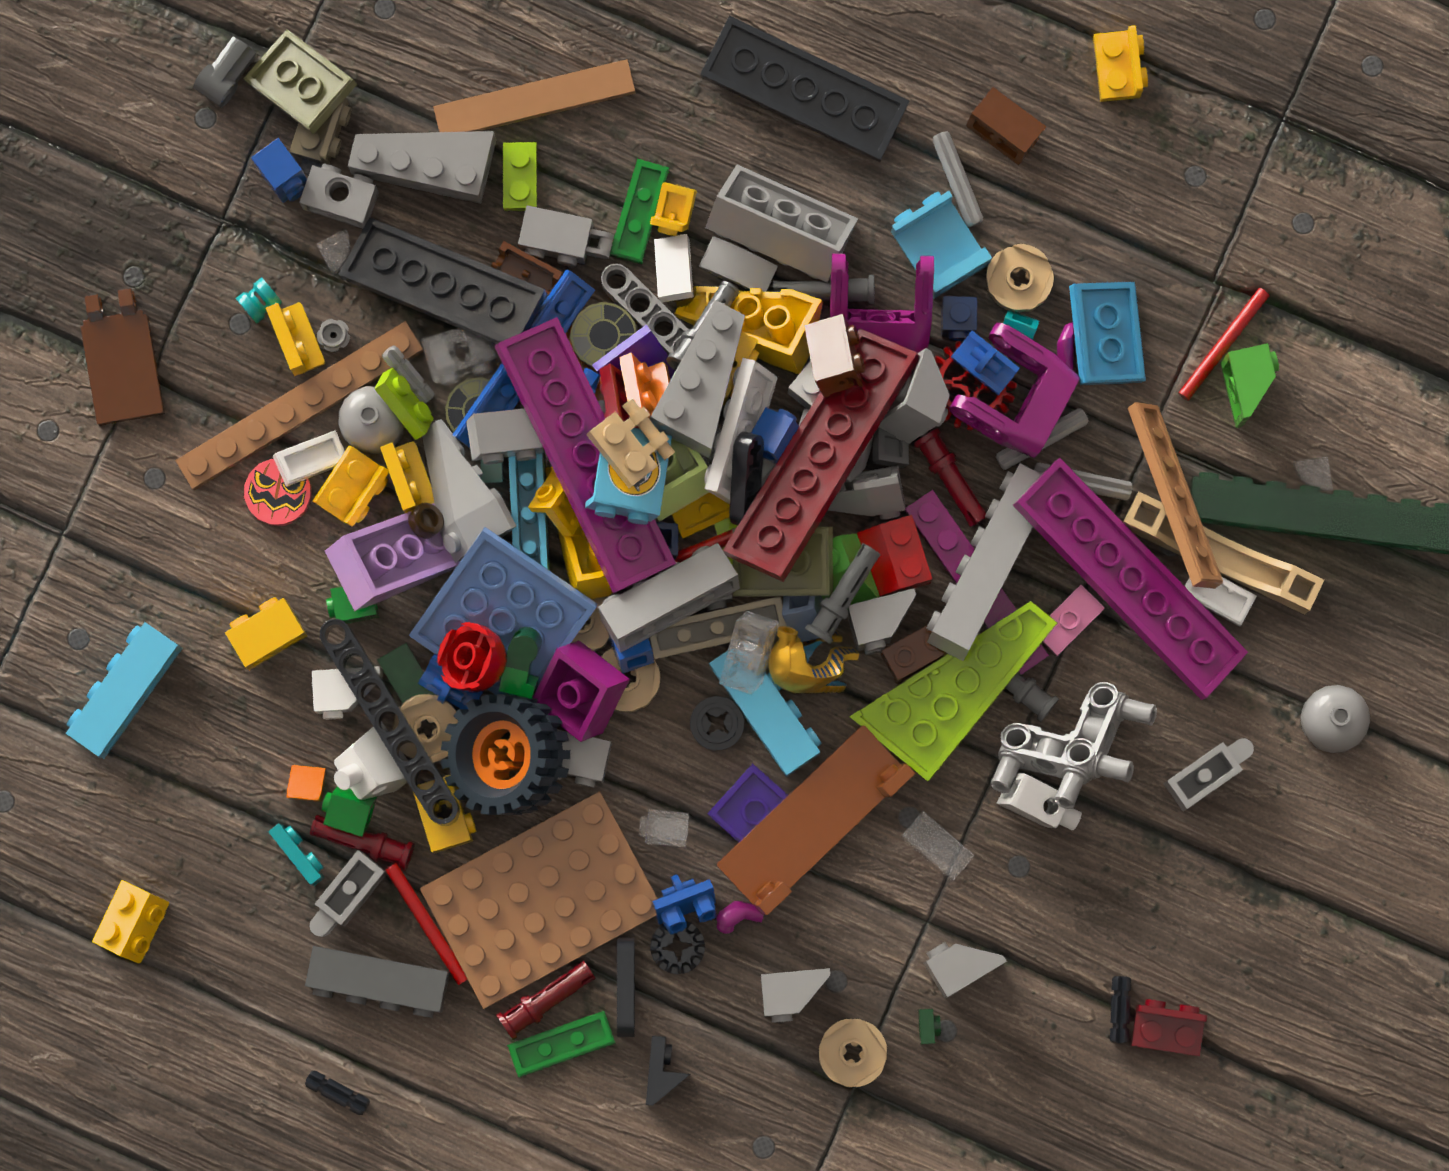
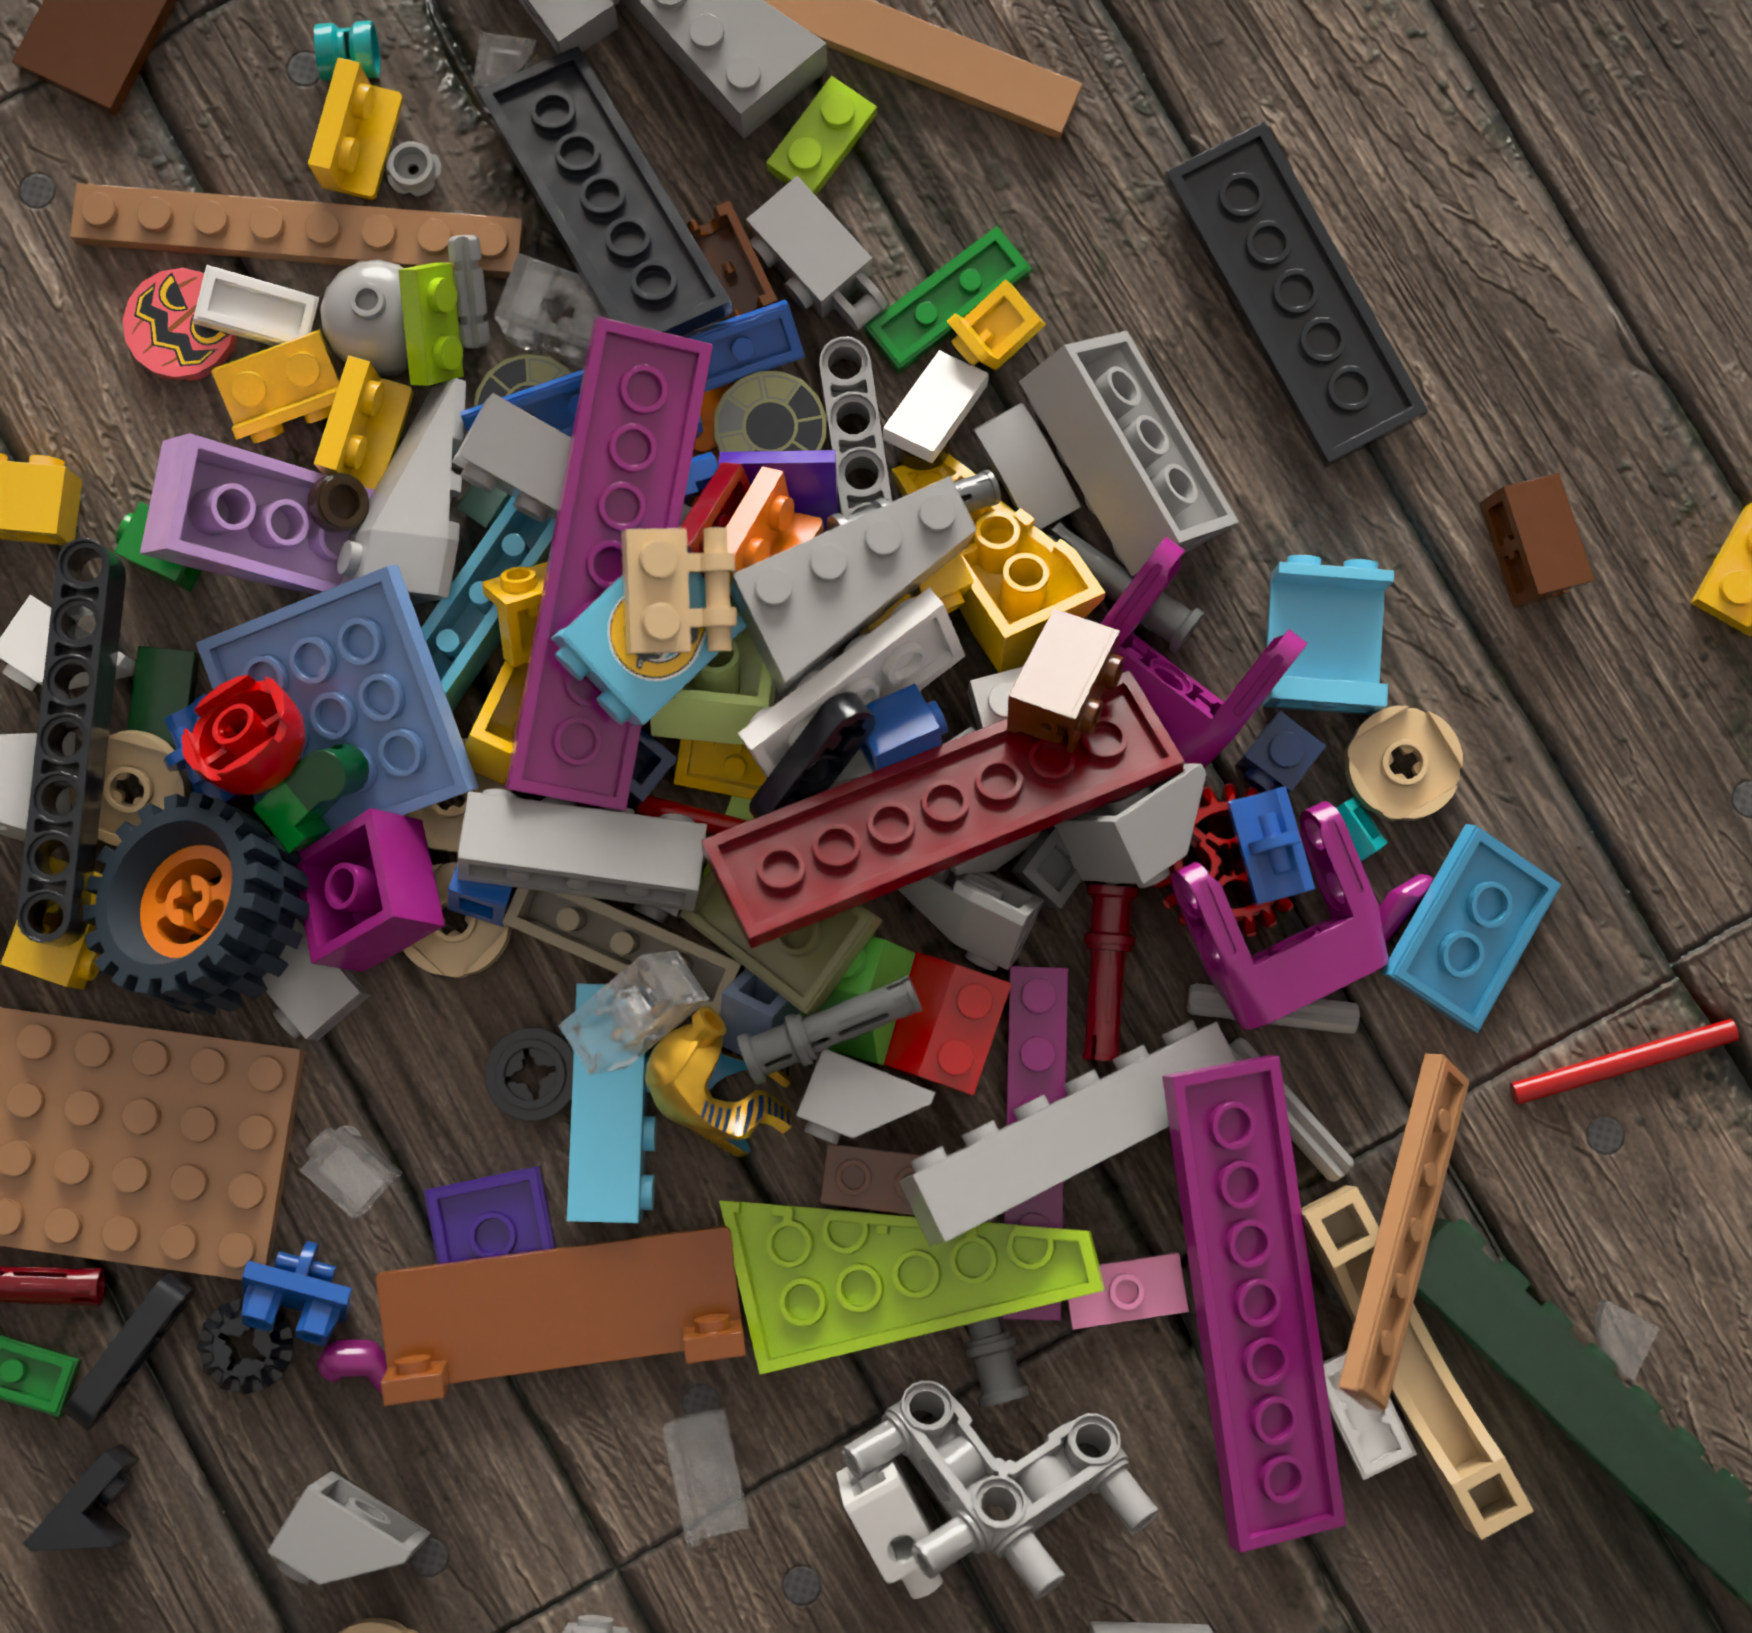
camera: 30 degrees right, 0 degrees up
(957, 179) = (1416, 566): light grey axle -> none
(1247, 379) = (1626, 1141): bright green slope -> none

